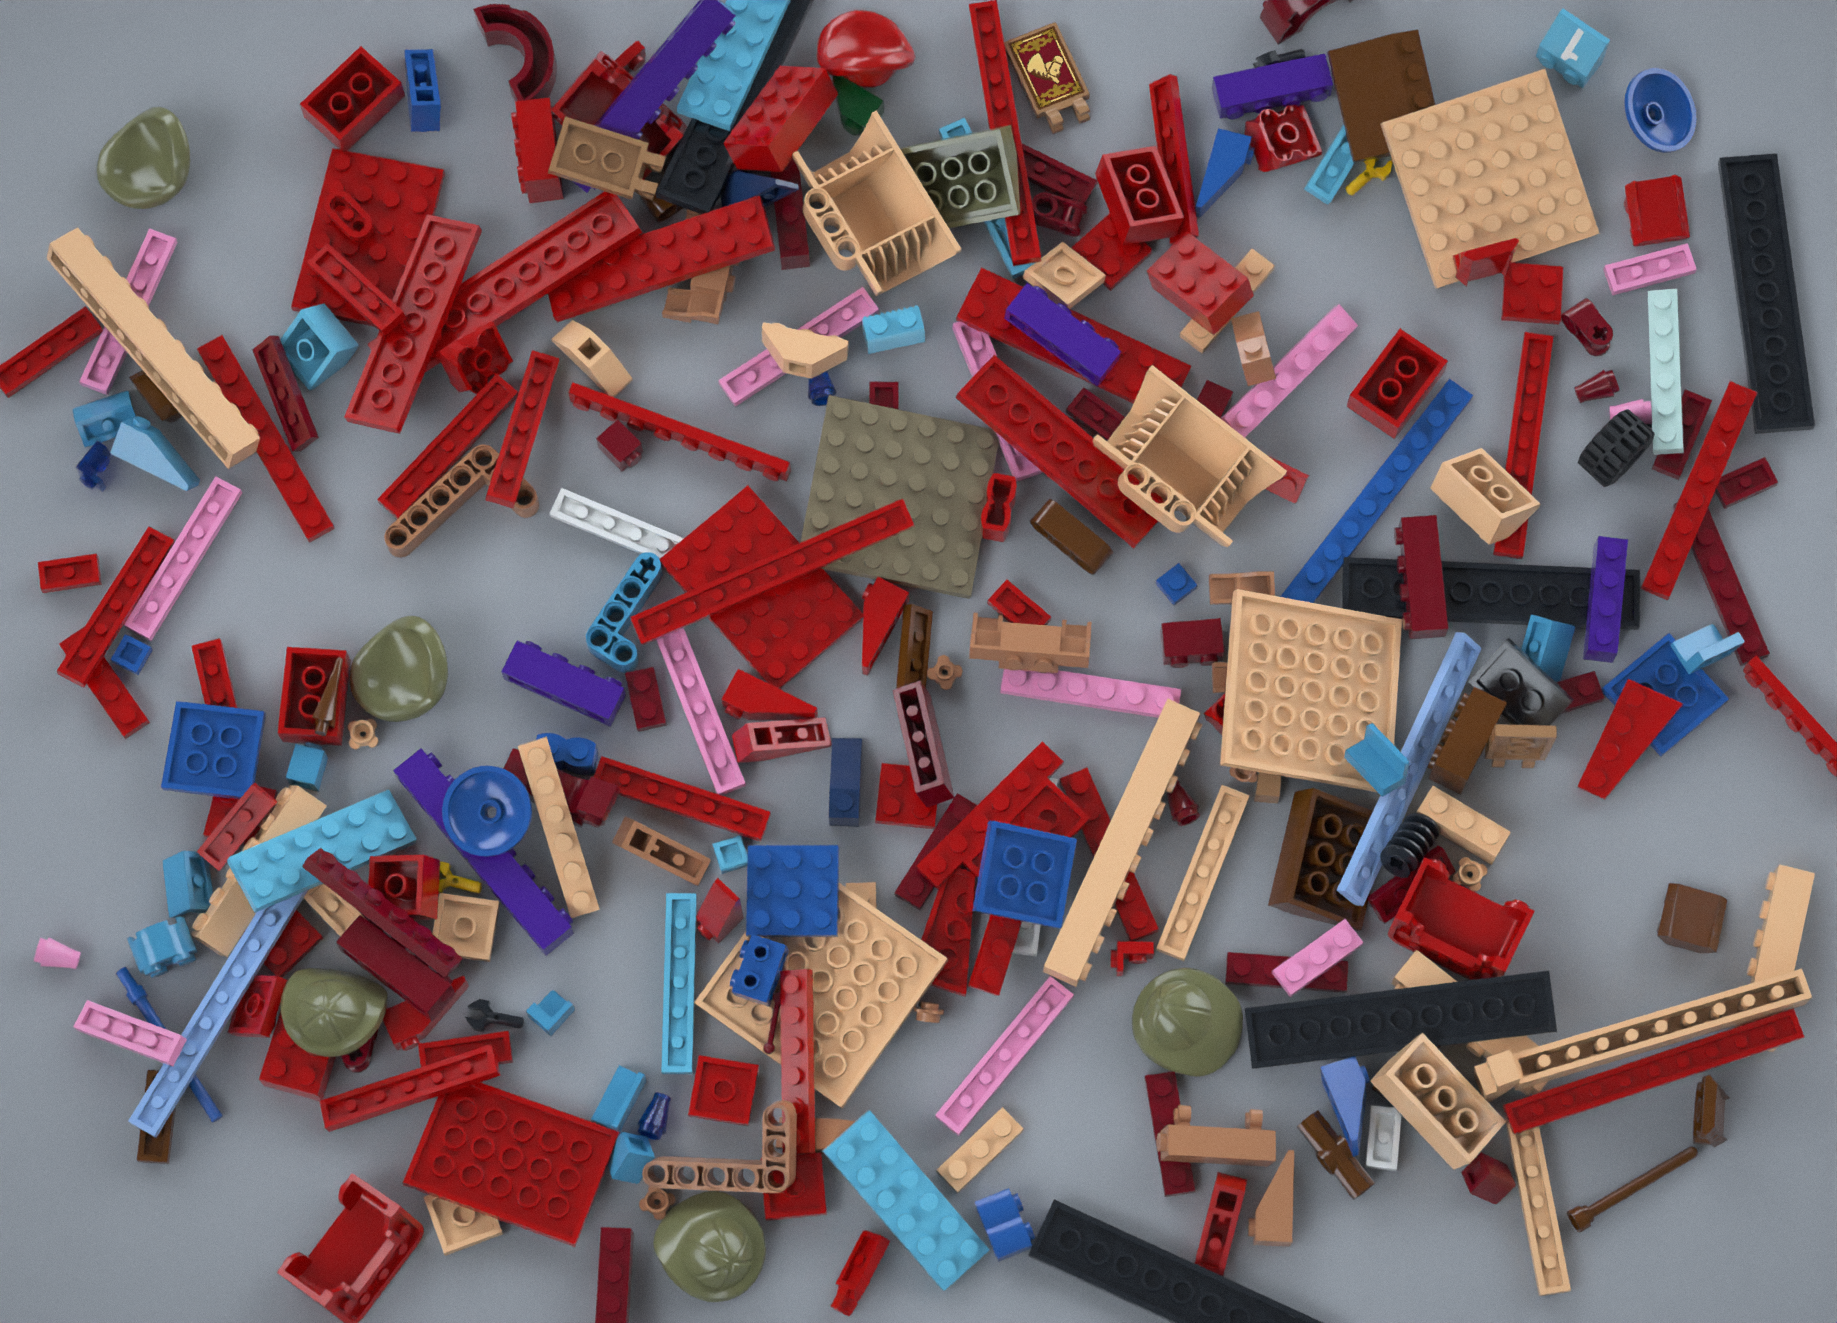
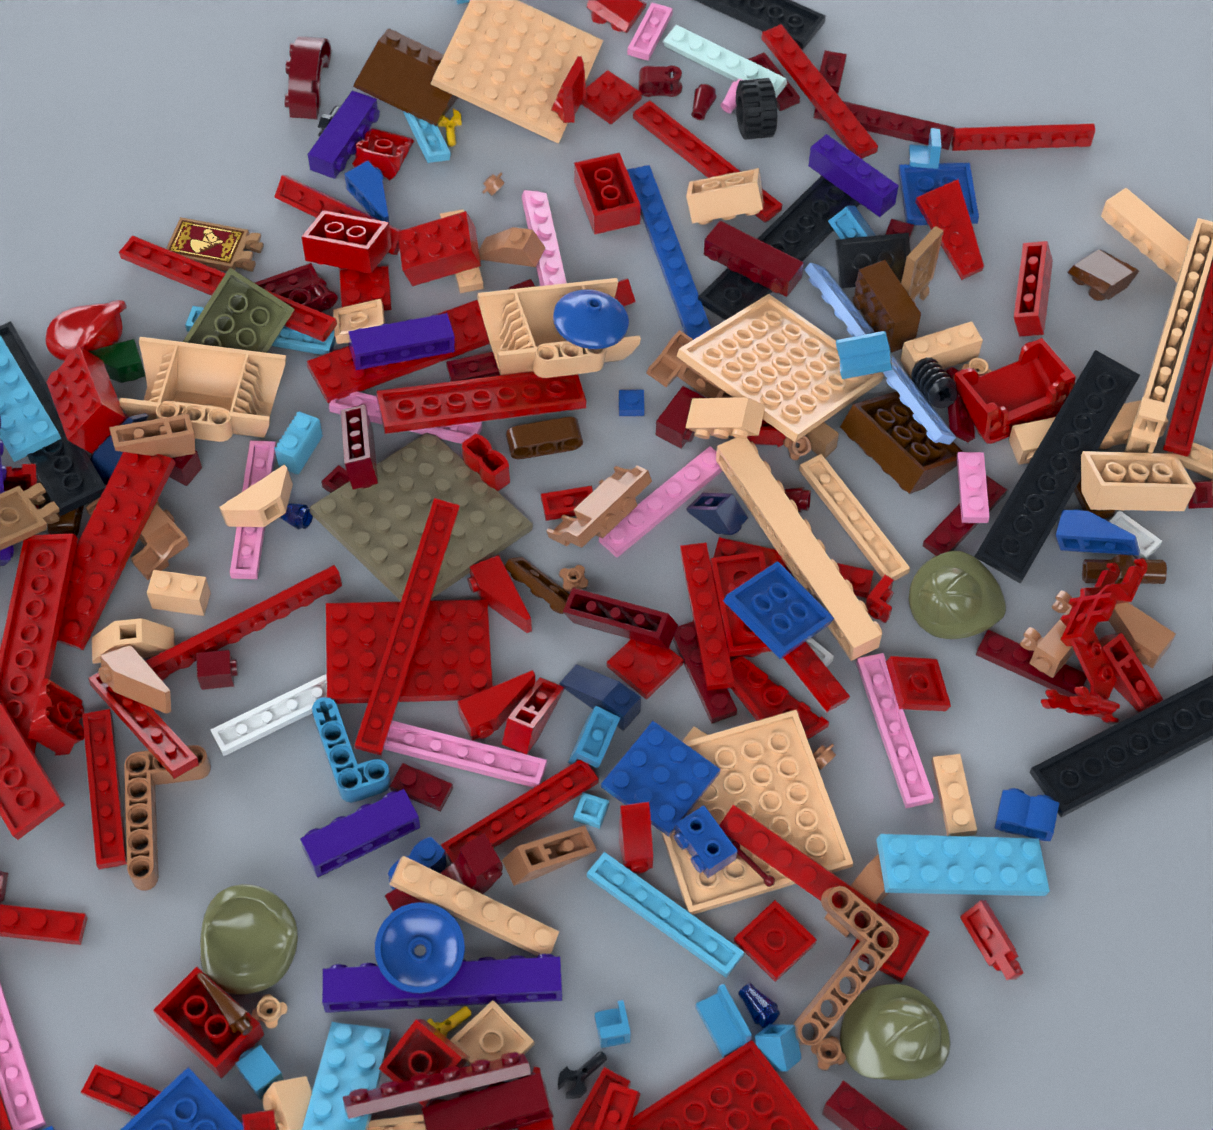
camera: 55 degrees left, 15 degrees down
(551, 388) = (133, 678): none -> nougat slope
(666, 354) = (178, 592): none -> light nougat brick
(777, 214) = (162, 436): none -> nougat slope
(795, 808) = (594, 737): none -> dark azure panel
(919, 388) = (359, 447): none -> dark red brick
(1063, 1046) = (918, 683): none -> red plate
(1111, 748) = (718, 512): none -> dark blue slope
(1200, 684) = (725, 417): none -> light nougat brick
(1201, 499) = (590, 319): none -> blue dish
(1202, 1168) = (1091, 607): none -> red piece
(1326, 269) = (493, 184): none -> nougat plate
(1608, 864) = (1033, 289): none -> red brick

